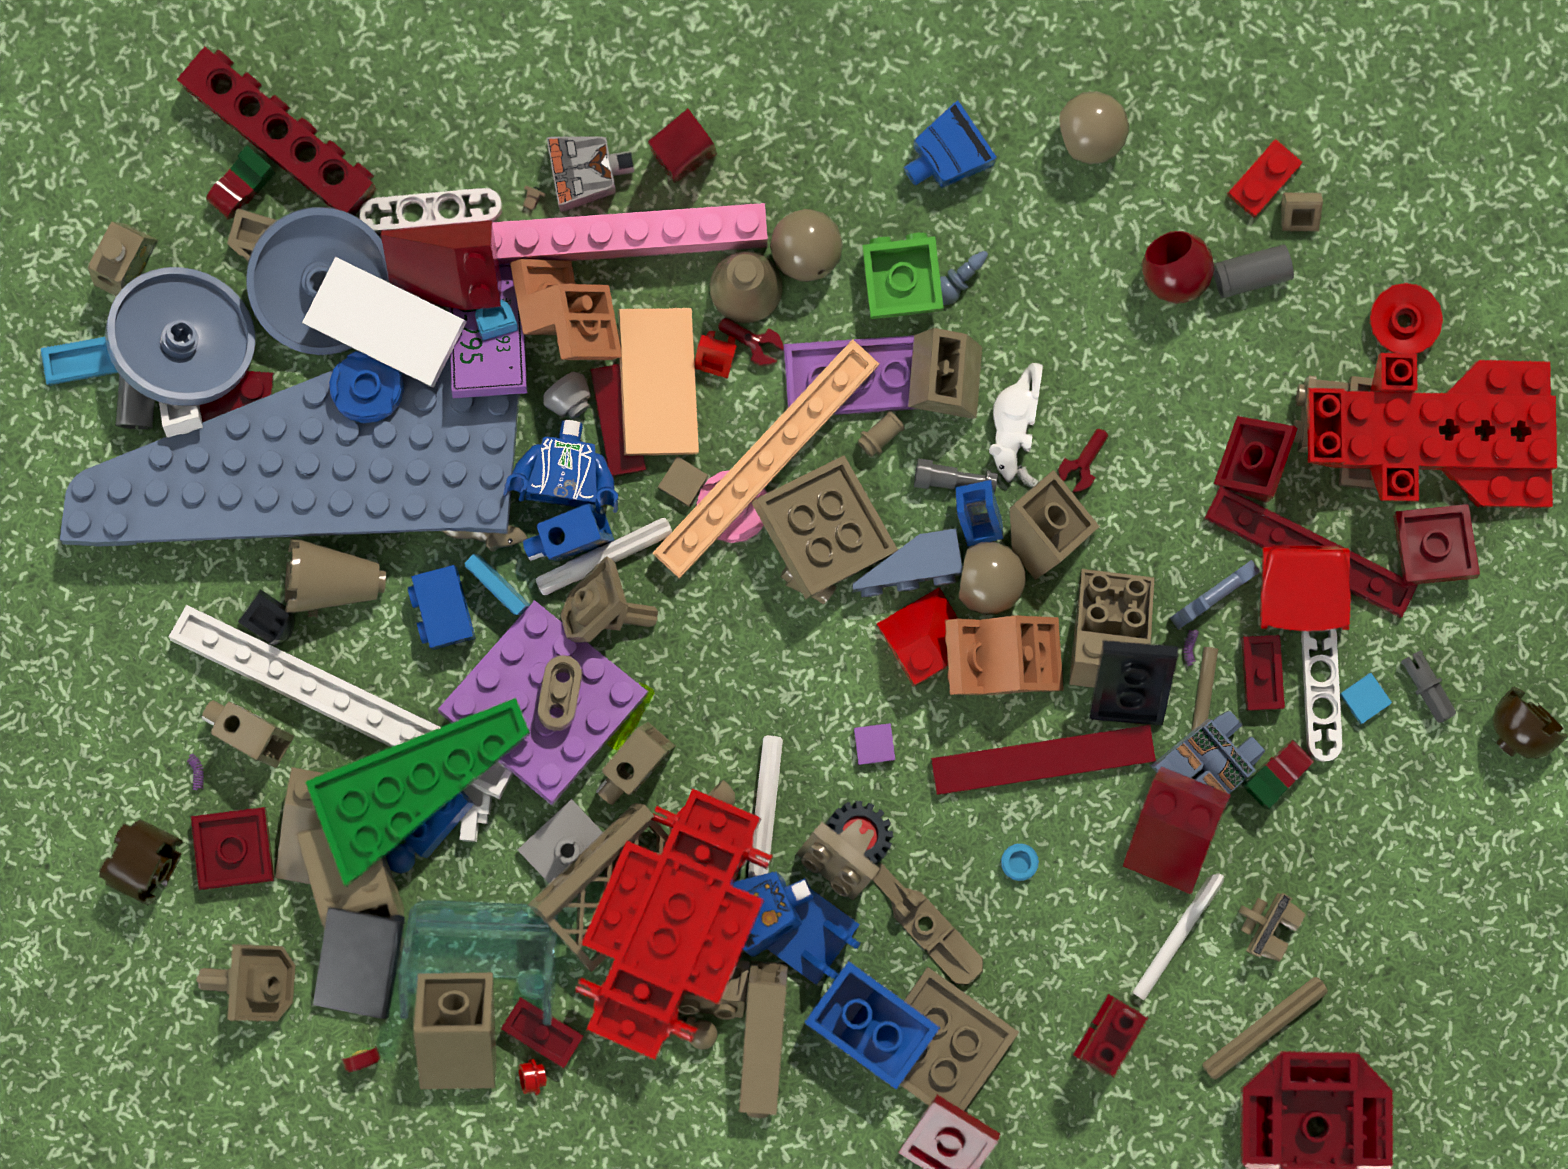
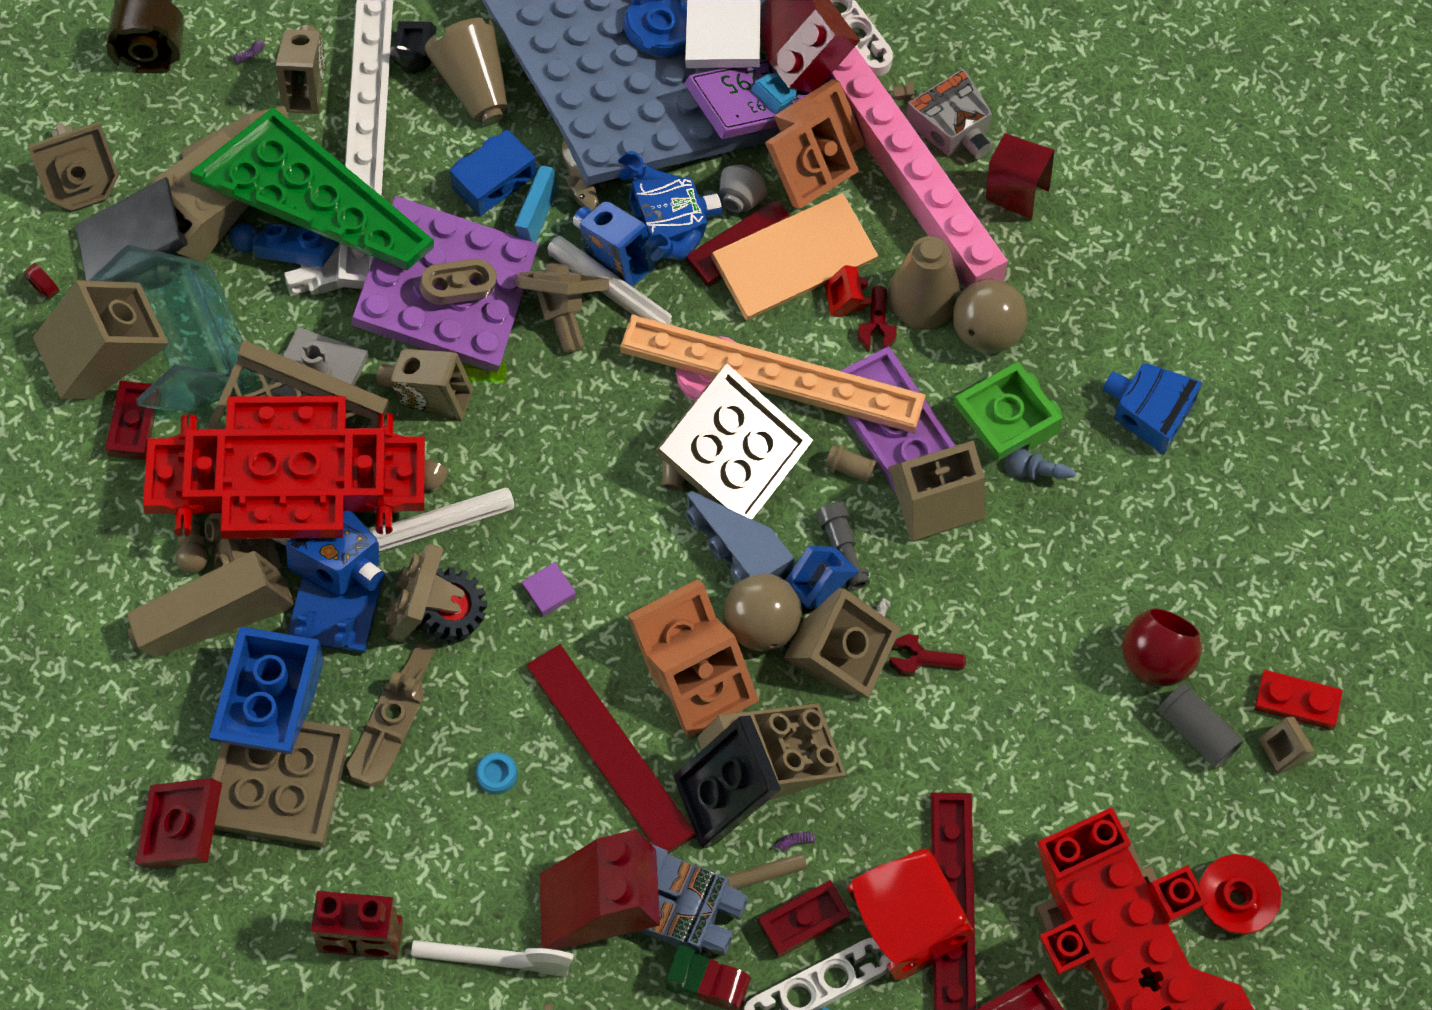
camera: 65 degrees right, 20 degrees down
(232, 848) = (191, 104): dark red plate -> none
(531, 1077) = (85, 429): red plate -> none
(683, 481) = (714, 317): dark tan tile -> none
(918, 636) = (666, 571): red slope -> none
(1012, 413) = (933, 570): white animal -> none
(1093, 127) = (1249, 511): dark tan helmet -> none
(1214, 594) = (836, 818): sand blue bar -> none
(1255, 457) = (1016, 814): dark red slope -> none

